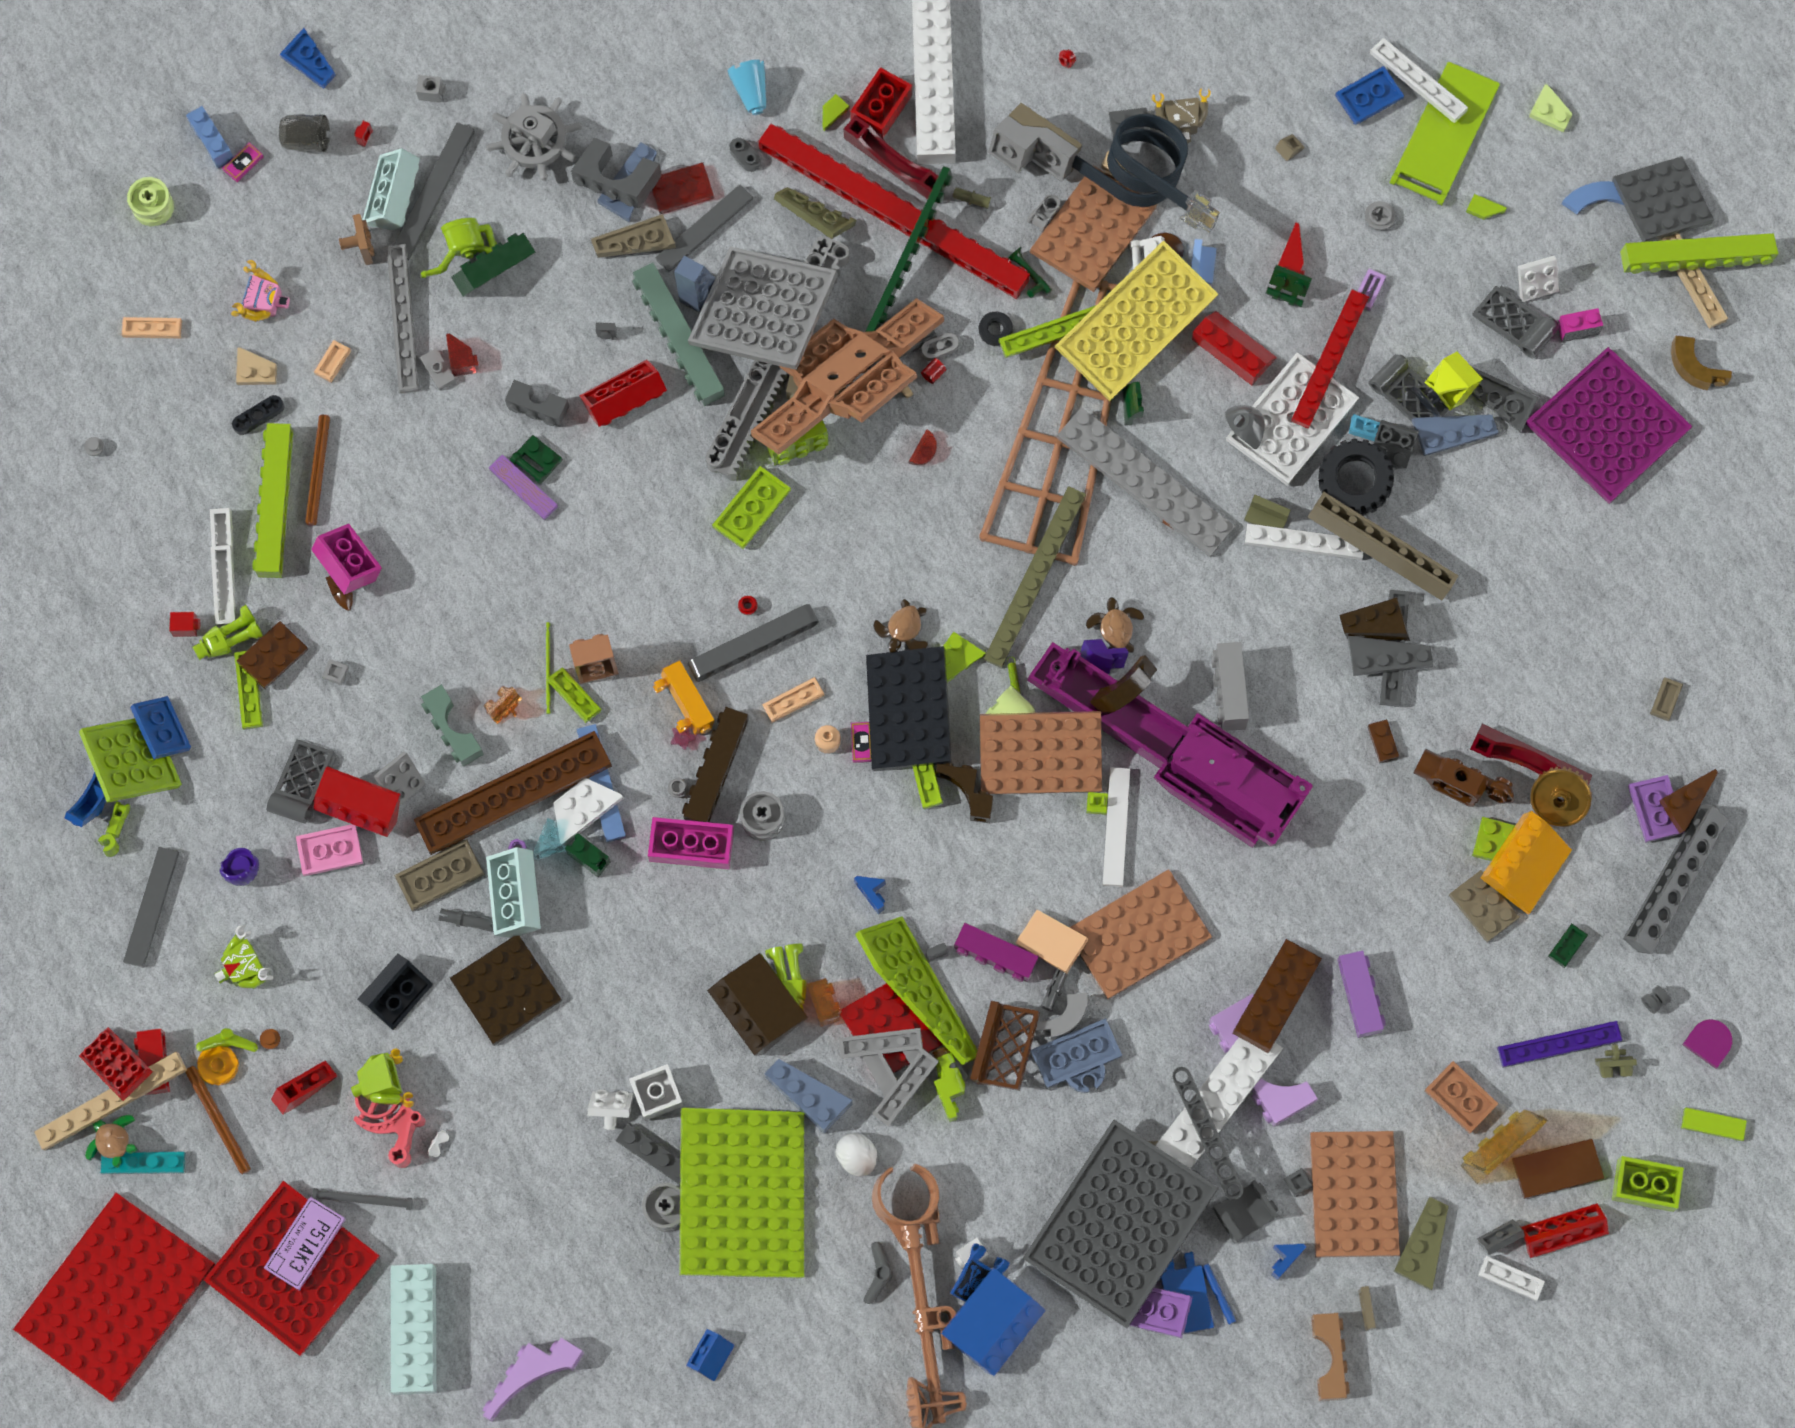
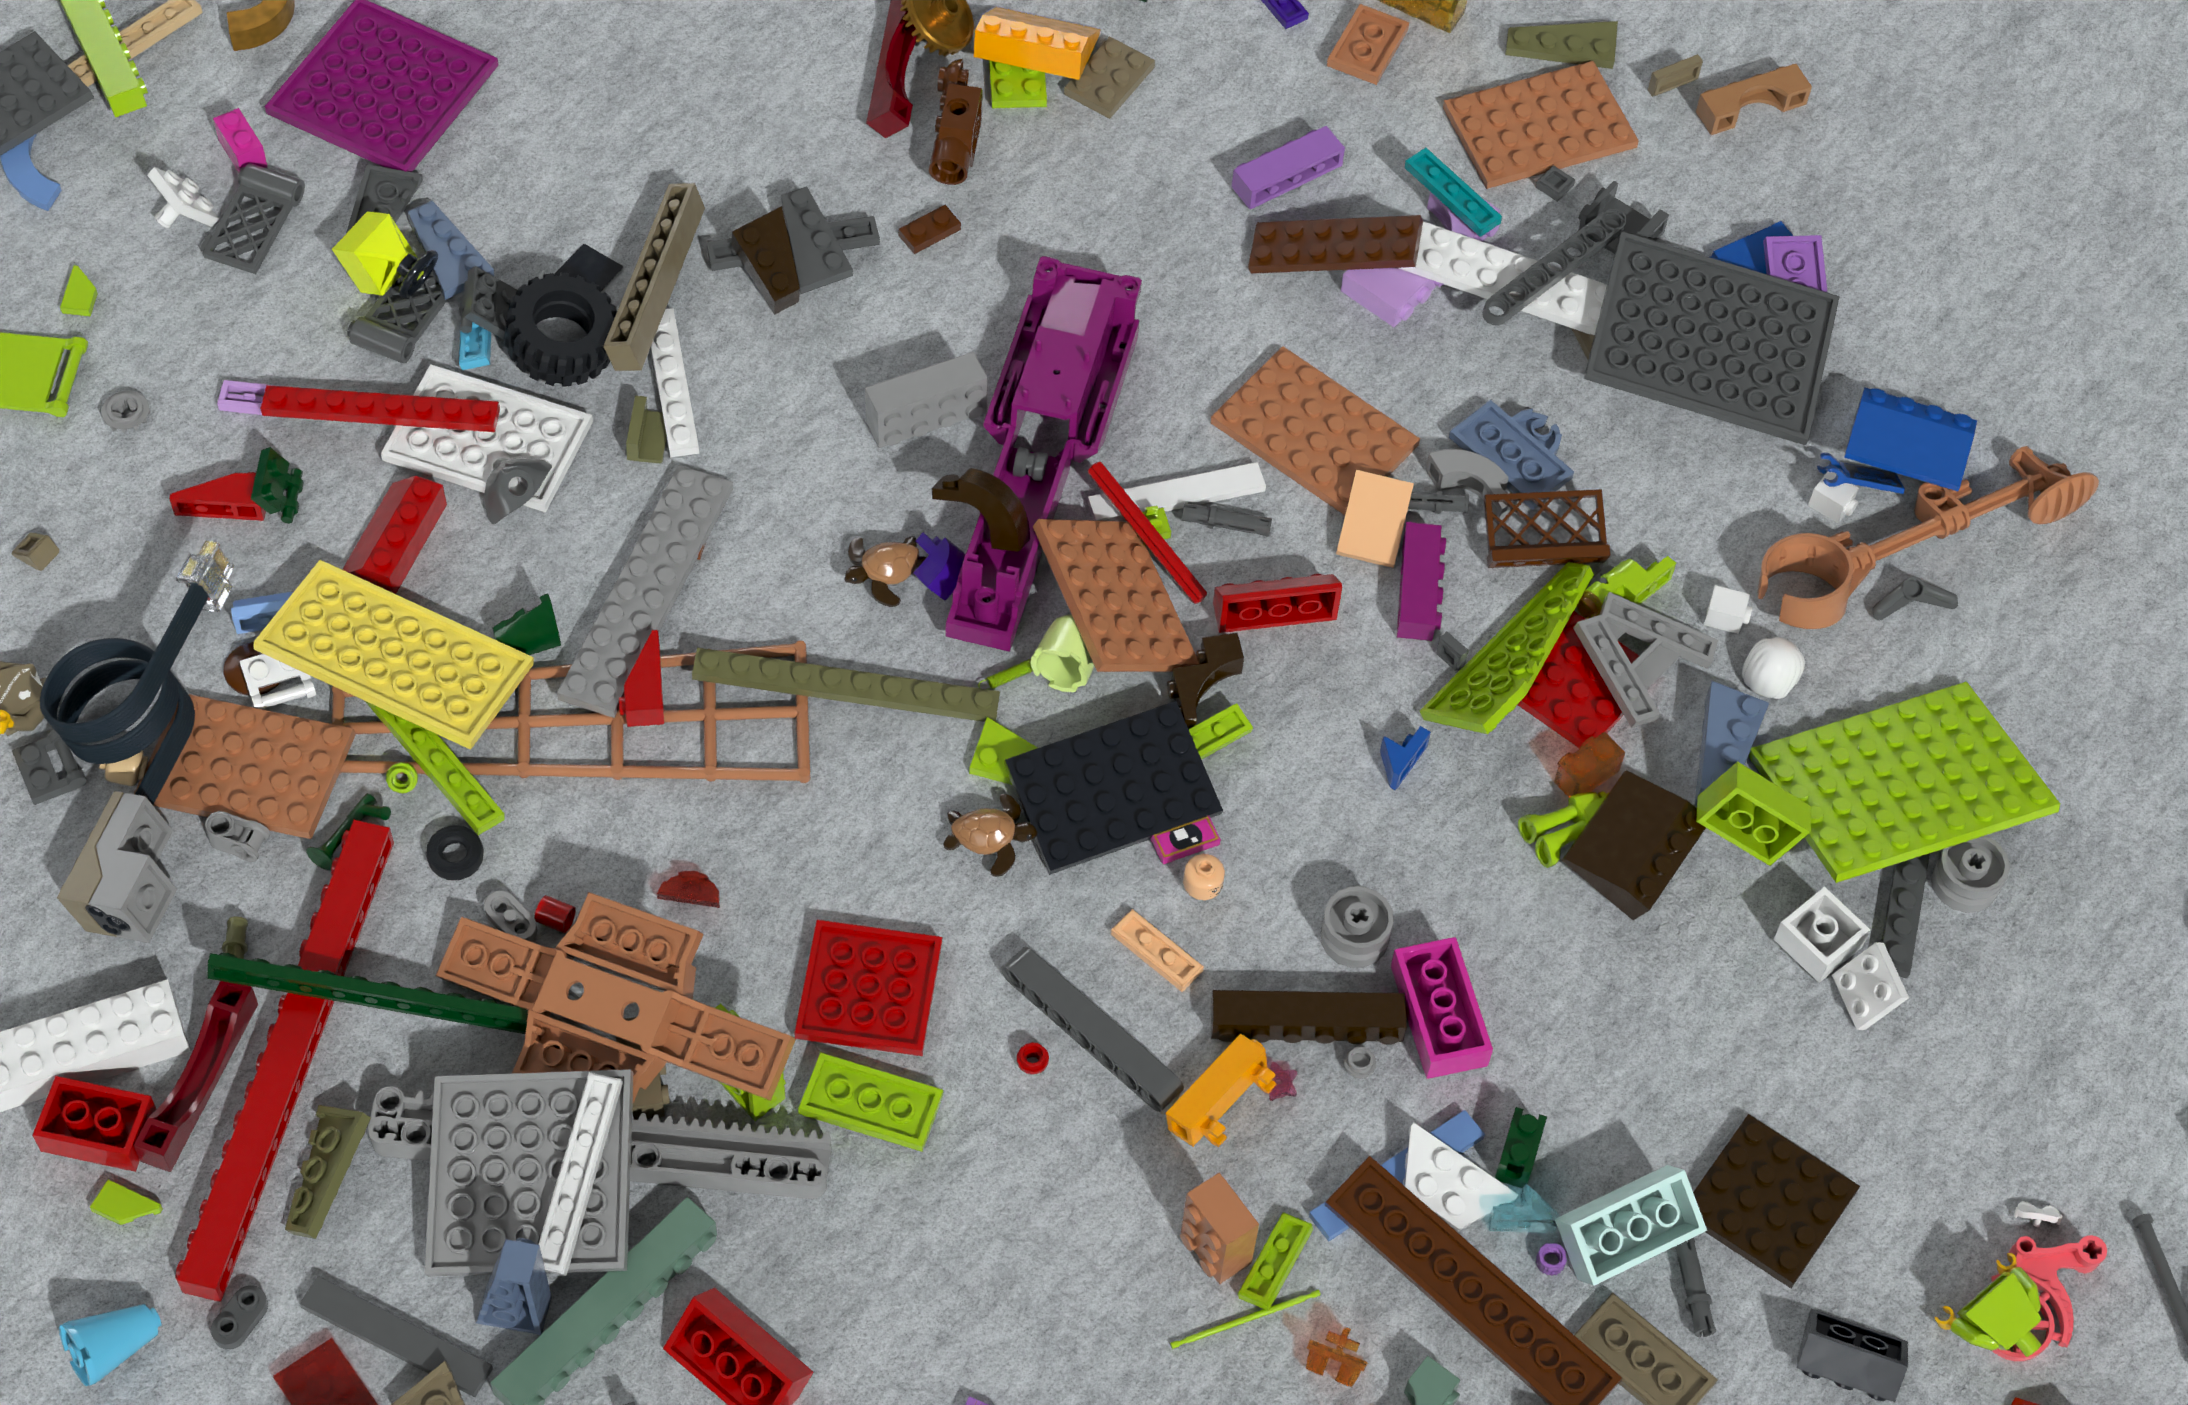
camera: 115 degrees left, 15 degrees down
(710, 1355) = (2127, 764): blue panel -> none
(744, 1078) = (1753, 813): none -> lime brick
(748, 327) = (578, 1172): none -> white tile
(824, 528) = (869, 988): none -> red plate
(908, 1143) = (1728, 609): none -> white brick
(1009, 854) = (1277, 602): none -> red slope
(1055, 310) = (402, 786): none -> lime plate
(1065, 456) = (644, 687): none -> red slope
(1085, 791) = (1147, 532): none -> red axle
(1089, 841) = (1226, 519): none -> dark grey pin
(1159, 735) = (1030, 464): none -> dark grey wheel
(1218, 1294) = (1737, 228): blue bar -> none
(1290, 1253) = (1653, 164): blue slope -> none
(1296, 1091) = (1453, 192): none -> teal plate
(1413, 516) = (592, 266): none -> black sticker

